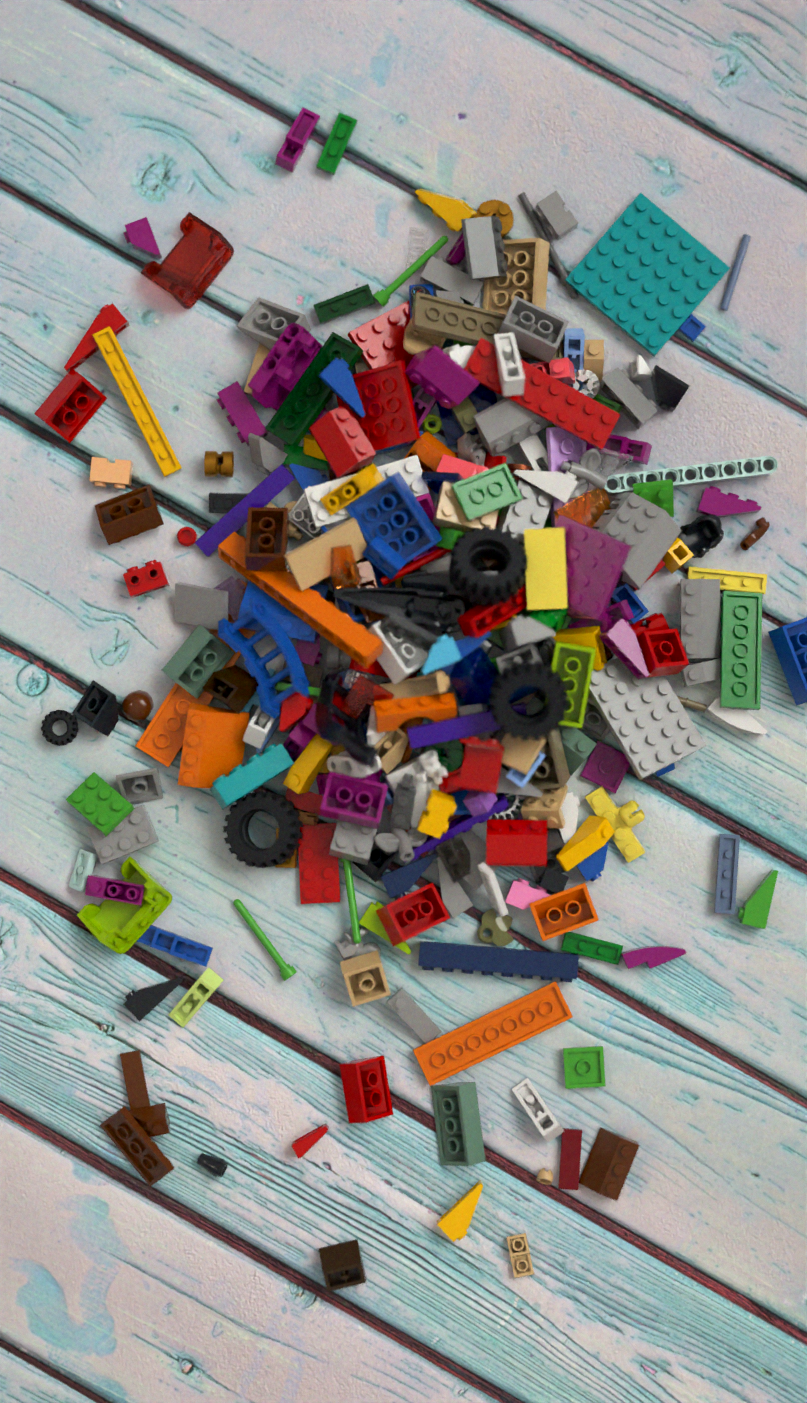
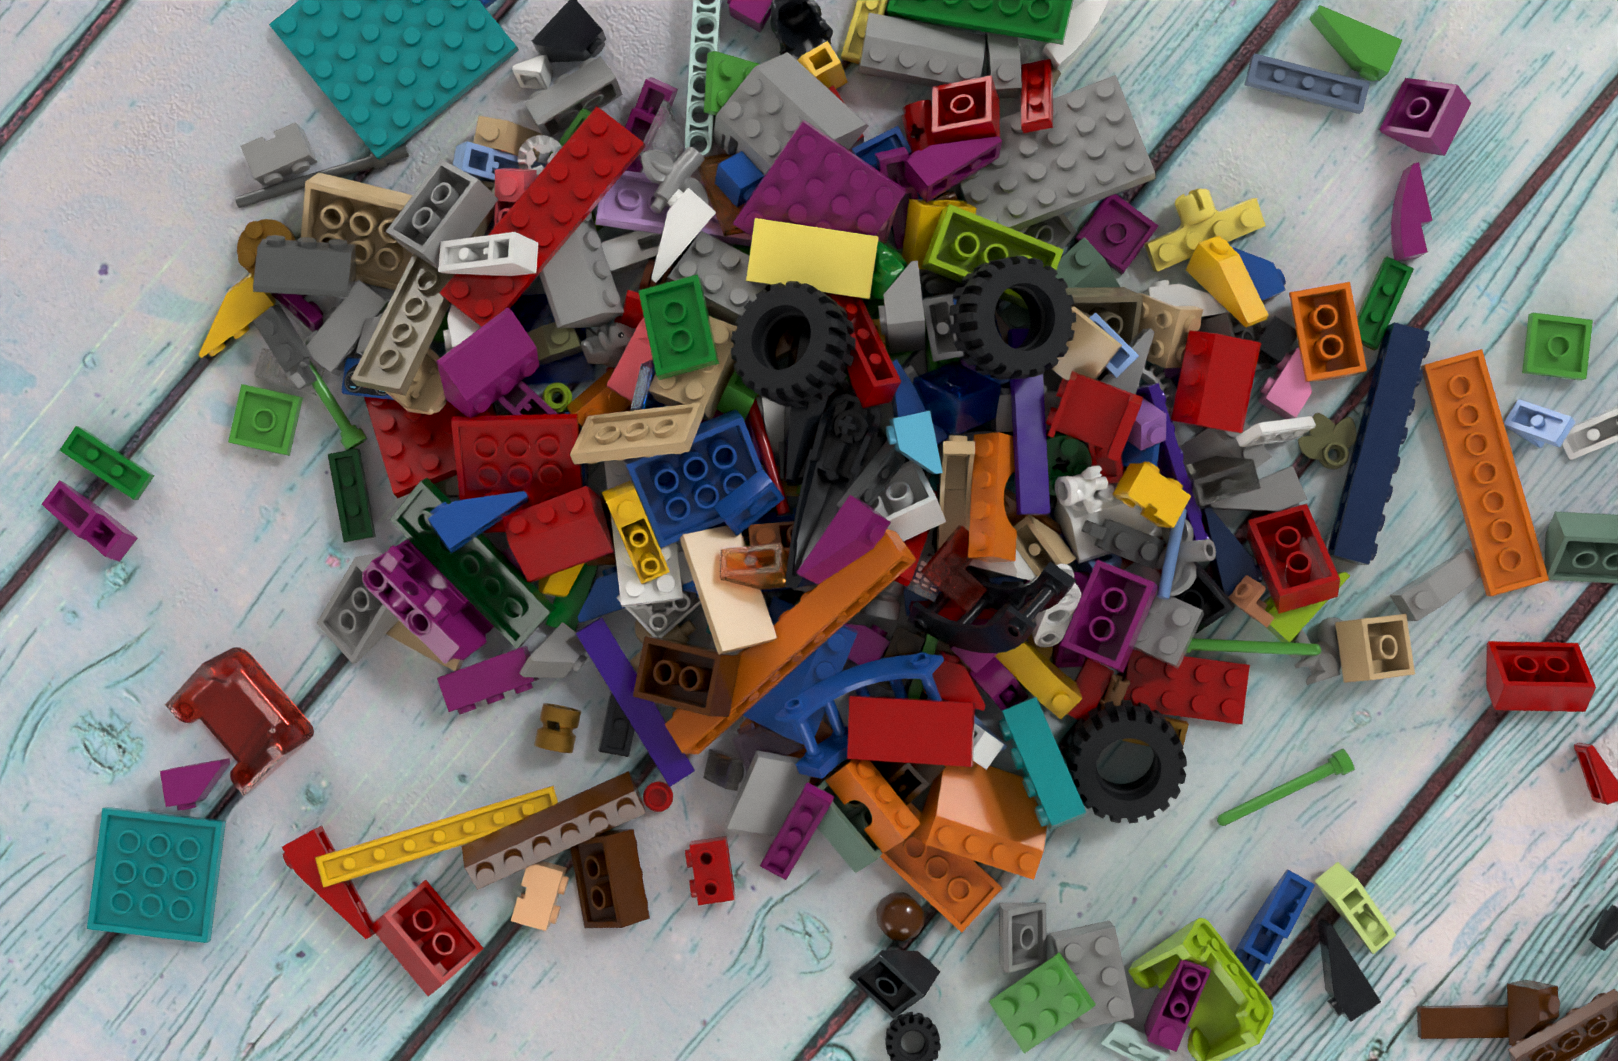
camera: 75 degrees left, 0 degrees up
(80, 226) = (156, 874): none -> teal plate
(153, 473) = (552, 830): none -> reddish brown brick
(181, 627) = (796, 830): none -> magenta tile
(202, 683) = (890, 816): none -> orange arch
(211, 574) = (724, 769): none -> clear smoke plate
(258, 685) = (911, 730): none -> red tile
(370, 621) = (846, 539): none -> magenta slope
(380, 889) = (1247, 597): none -> nougat bracket
(382, 239) = (265, 420): none -> bright green plate
(399, 833) = (1171, 558): none -> medium blue bar
(414, 479) = (637, 433): none -> tan plate
(432, 245) = (286, 345): none -> dark grey hinge
(530, 1061) = (1538, 424): none -> light blue slope
(592, 513) = (738, 178): none -> blue brick
(683, 697) = (1037, 96): none -> red tile
(719, 955) = (1426, 115): none -> magenta slope

